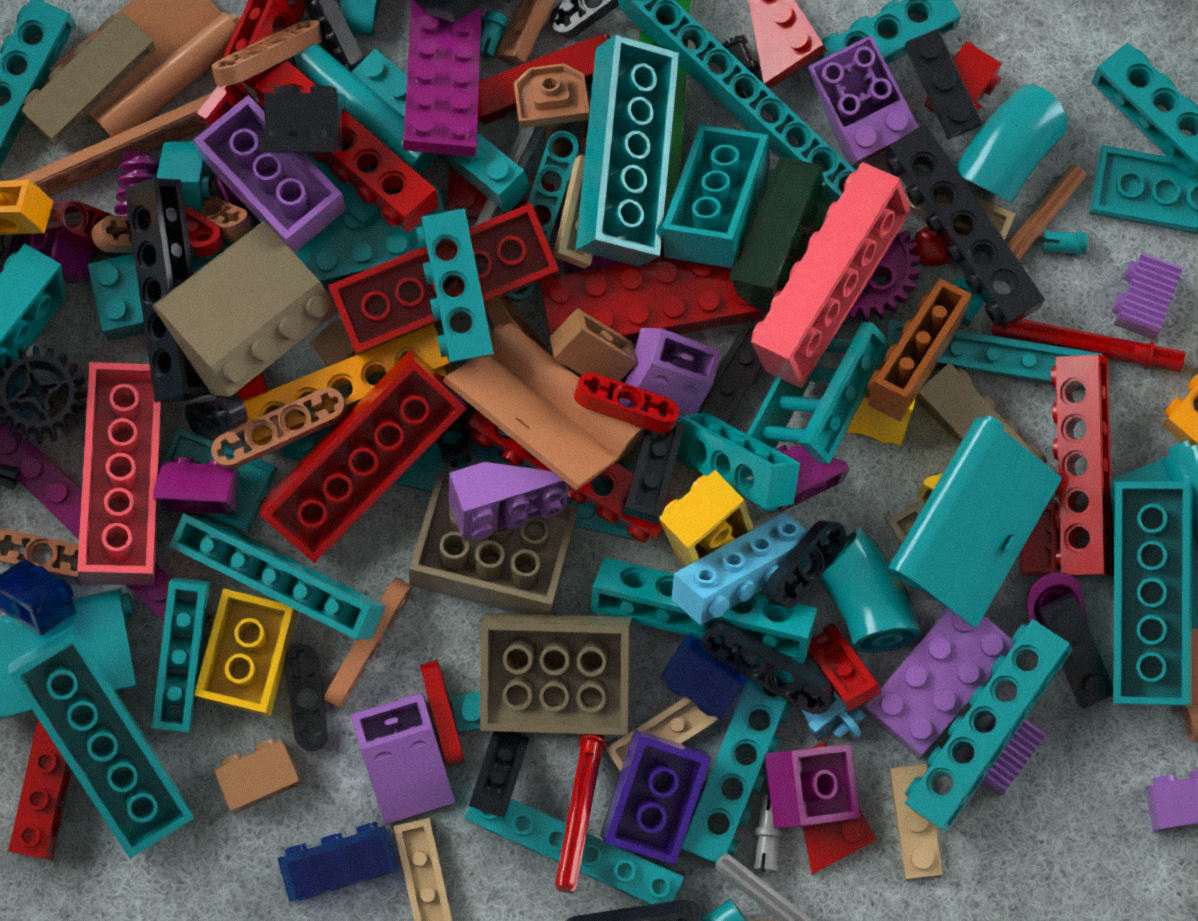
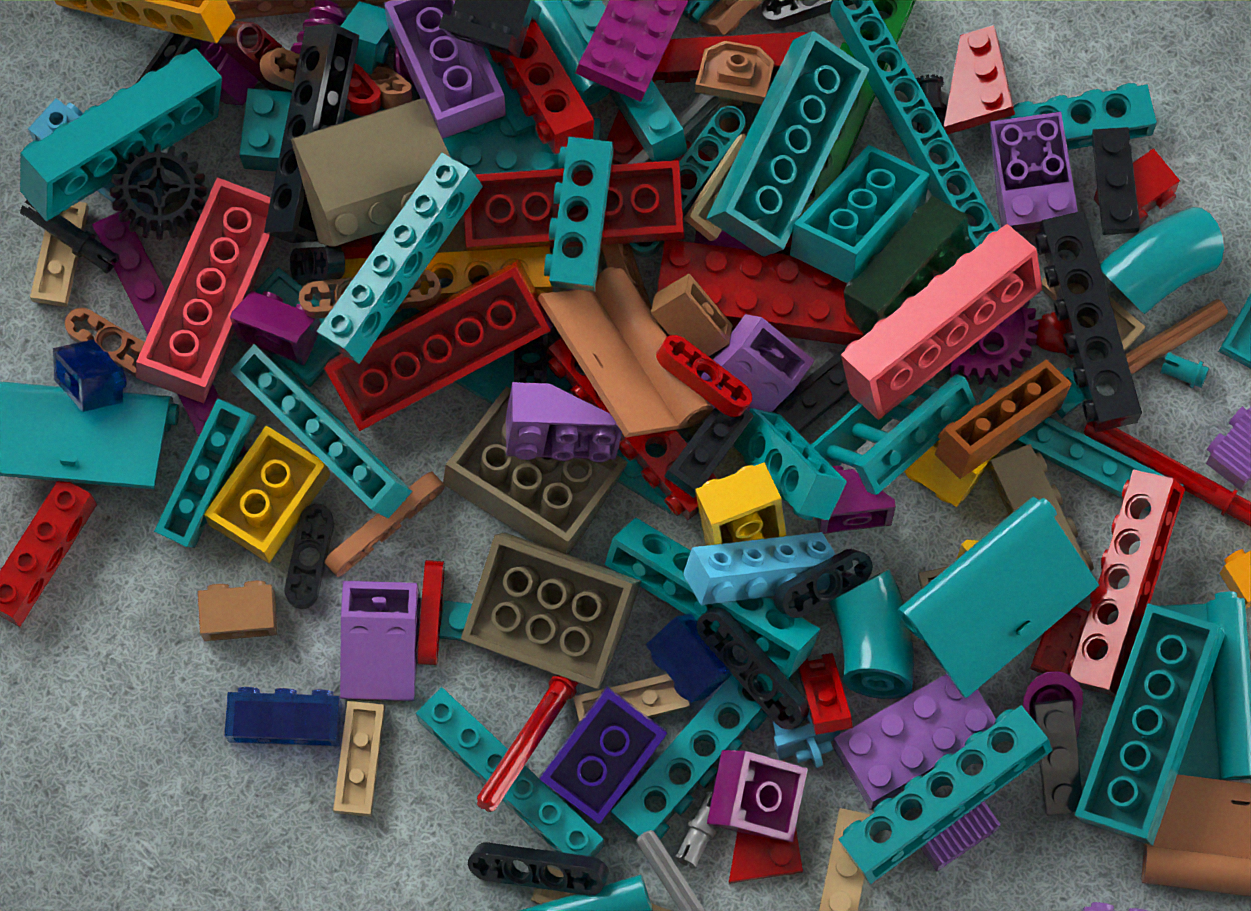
camera: 20 degrees right, 5 degrees down
(100, 741) = (102, 526): teal brick -> none
(298, 386) = (400, 258): none -> teal brick
(499, 773) = (463, 681): black plate -> none

